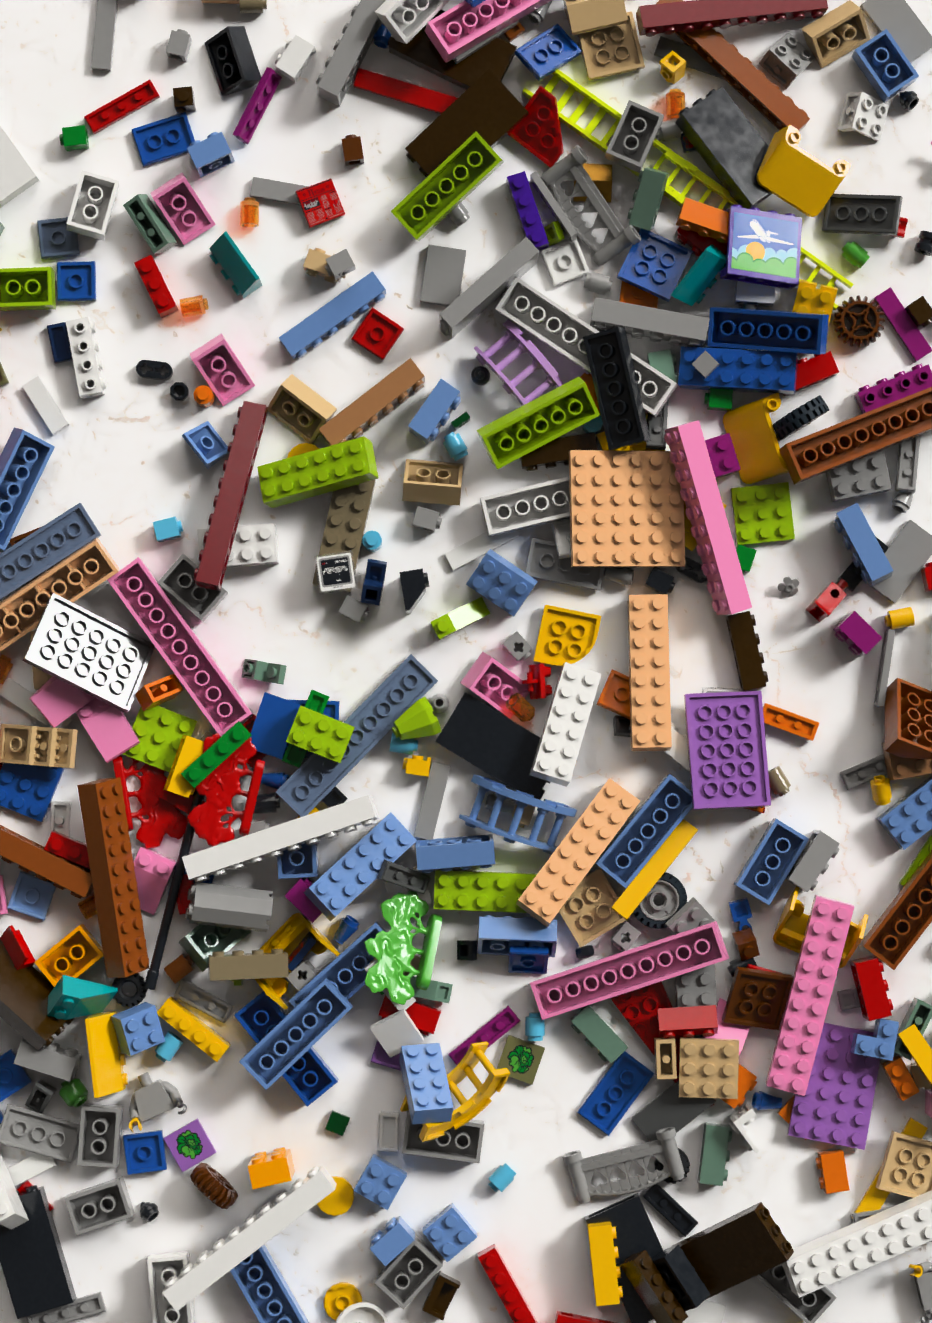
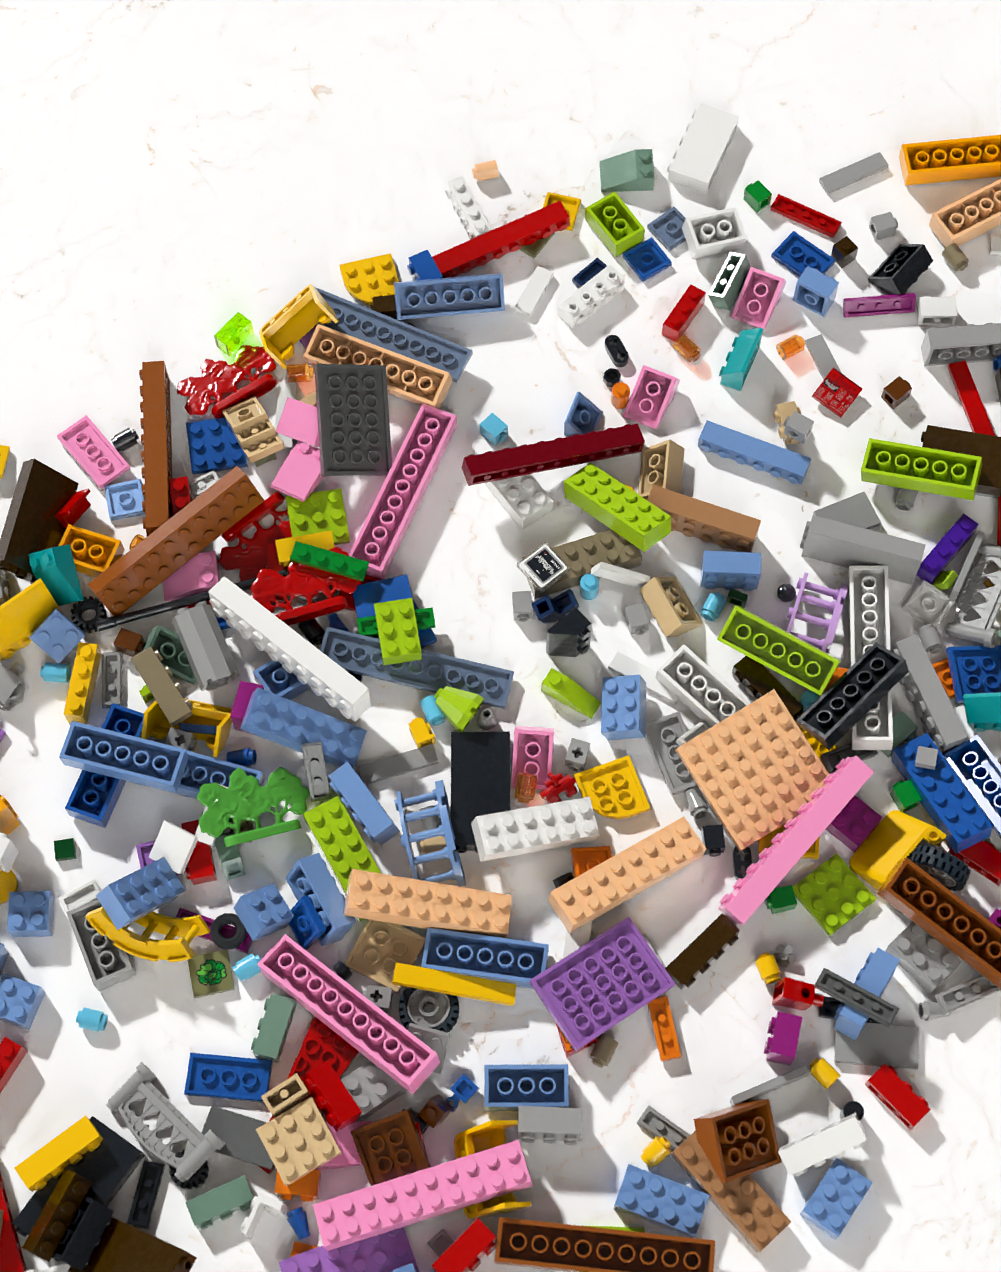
camera: 65 degrees right, 20 degrees down
(159, 692) = (354, 493): orange brick -> none
(181, 584) = (451, 482): light grey brick -> none
(263, 671) = (424, 566): sand green slope -> none
(377, 334) = (763, 496): red tile -> none
(380, 509) = (620, 575): none -> white tile
(467, 950) = (282, 867): black brick -> none
(498, 989) = (263, 912): none -> medium blue brick
(507, 1026) = (230, 943): none -> black tyre
(791, 607) = (768, 968): none -> yellow brick
(868, 559) = (856, 997): none -> dark grey tile

